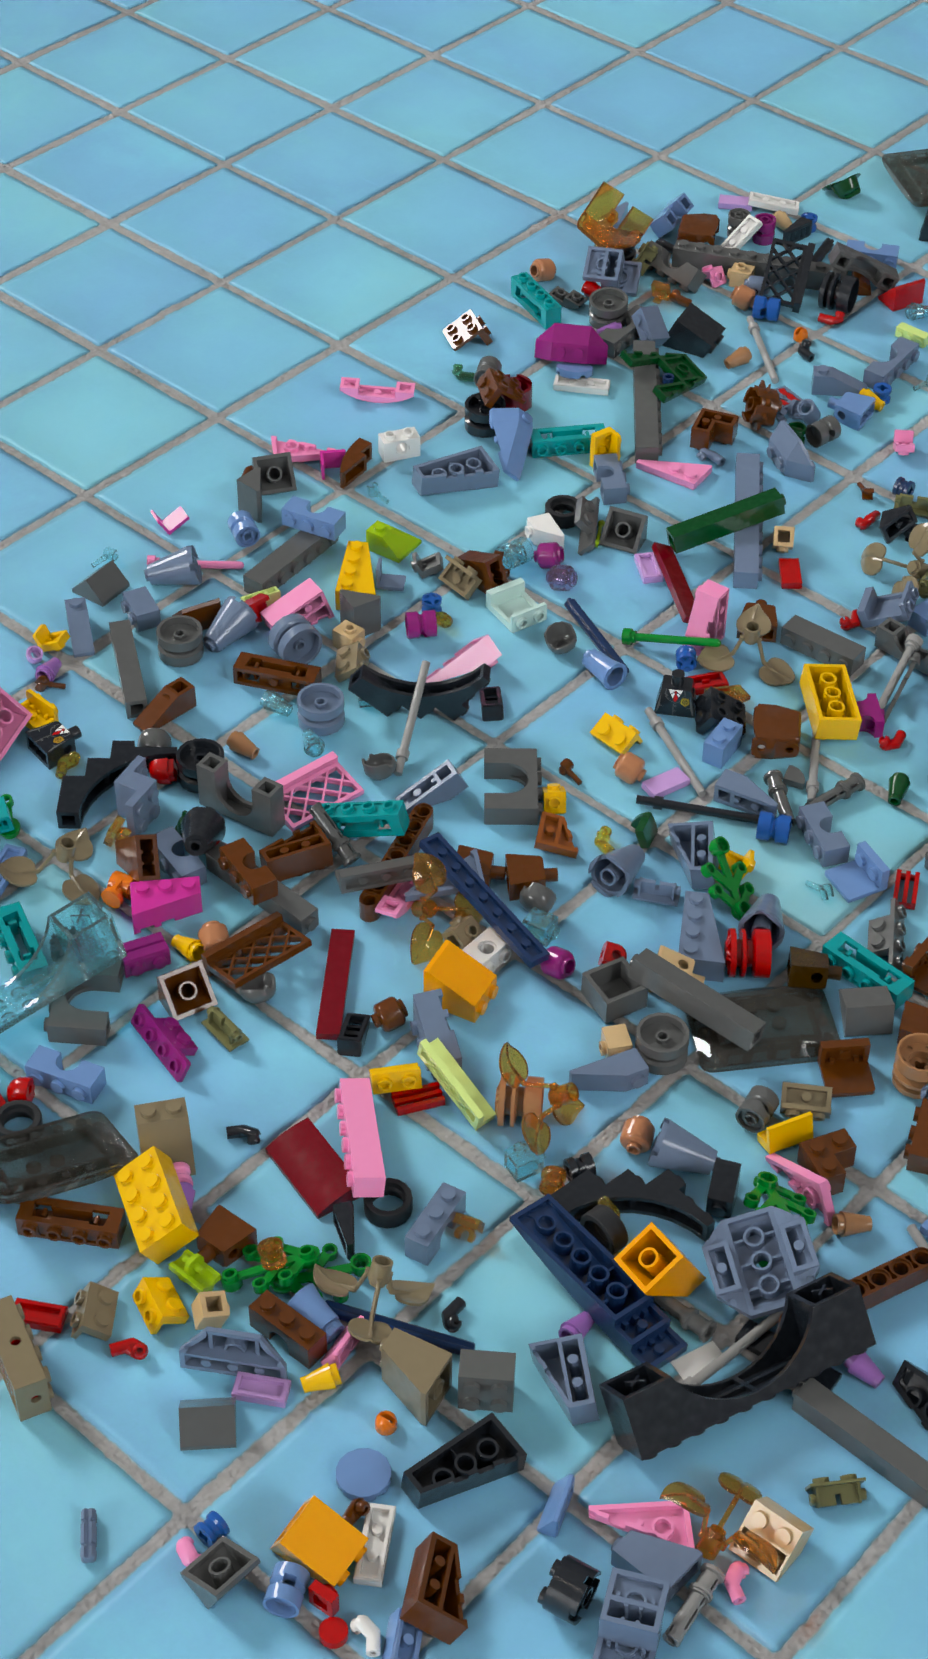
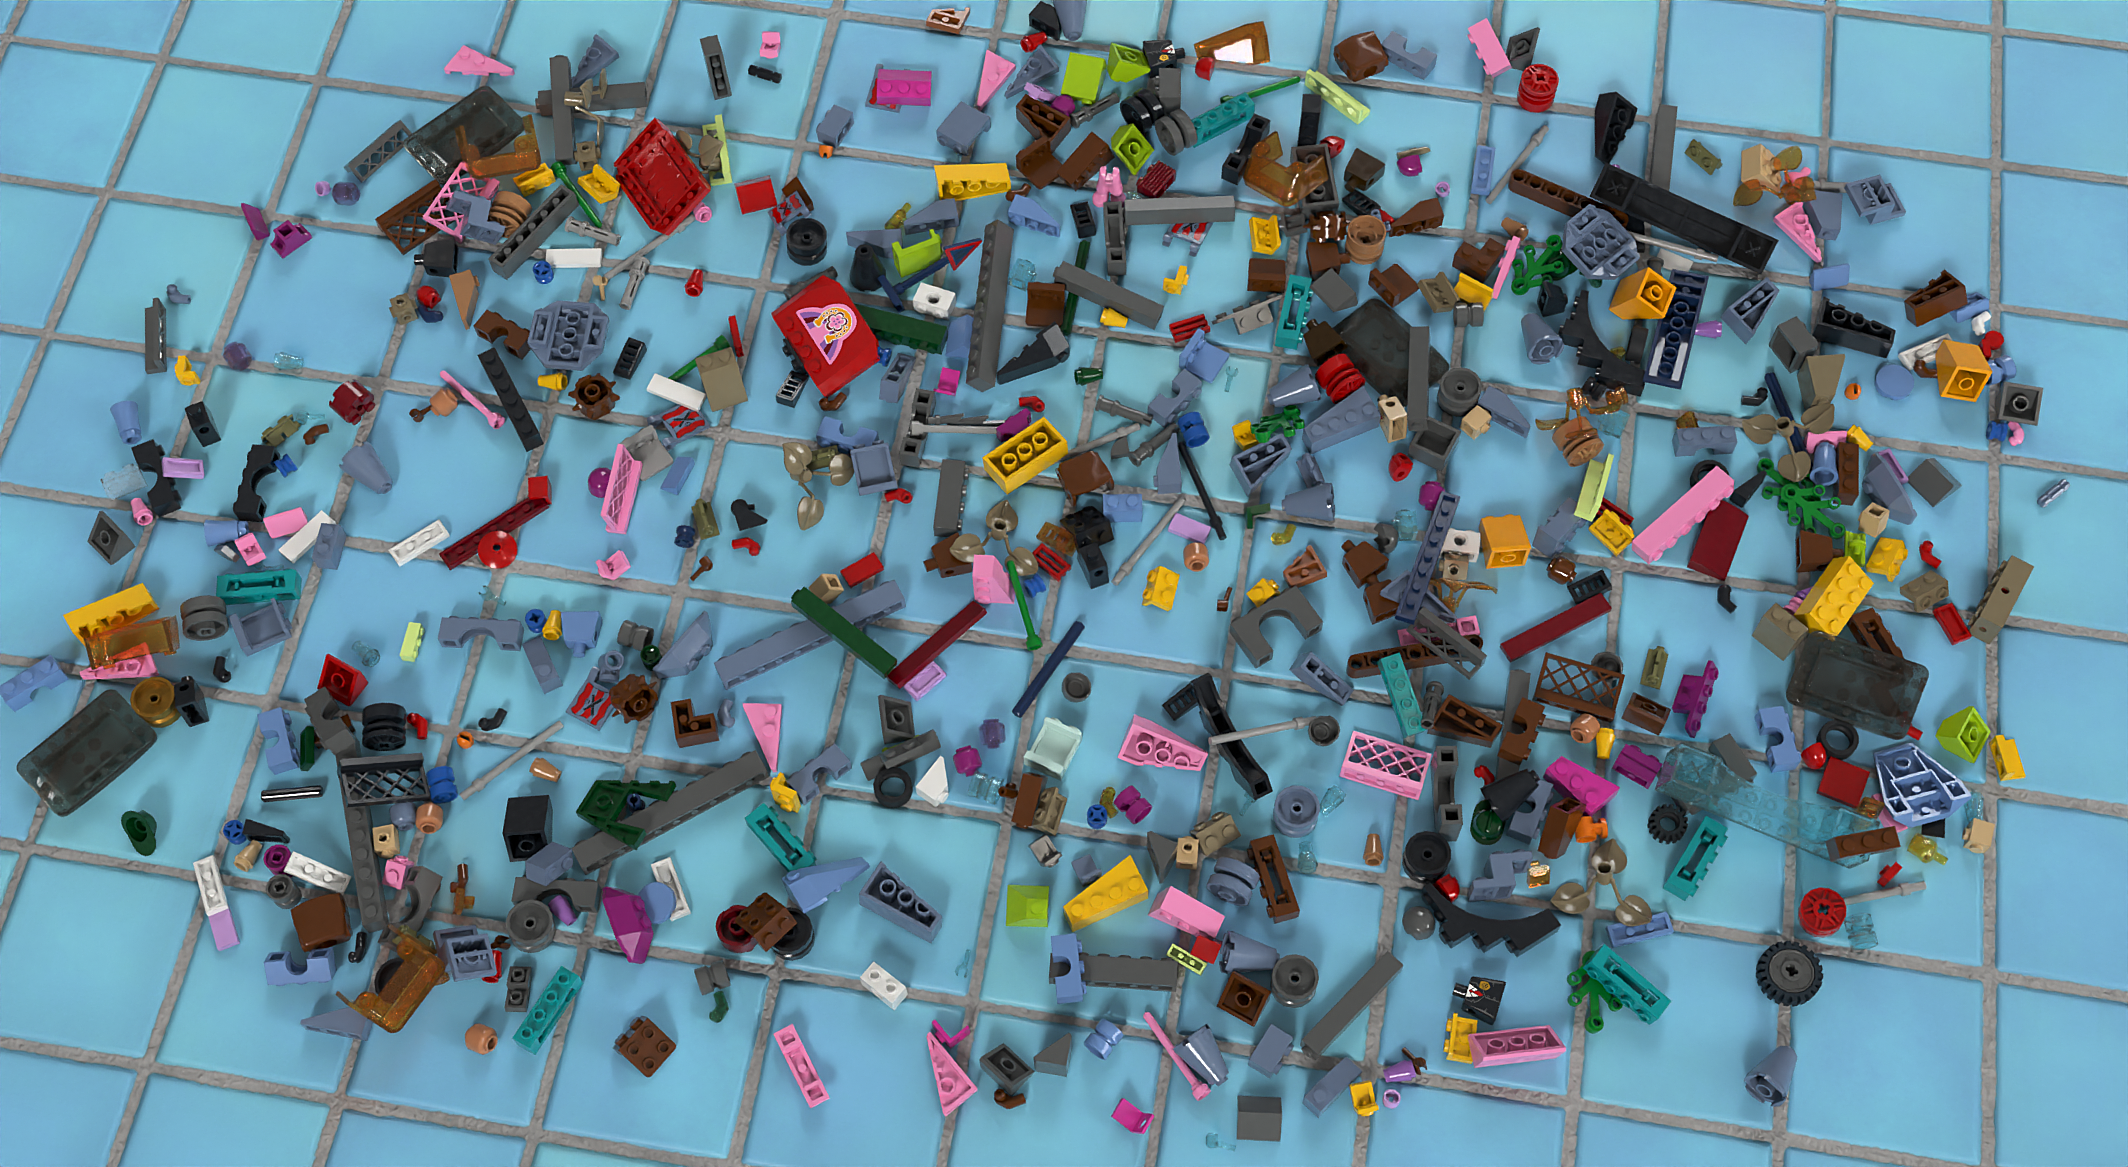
camera: 120 degrees left, 20 degrees up
(66, 762) = (1485, 972): clear yellow arm -> none
(167, 705) = (1378, 936): reddish brown slope -> none
(272, 1253) = (1814, 506): clear orange wheel -> none
(355, 461) = (936, 1009): reddish brown slope -> none
(570, 1588) = (1880, 236): black brick -> none
(605, 668) = (1091, 636): medium blue plant -> none
(637, 1135) = (1543, 369): nougat head -> none

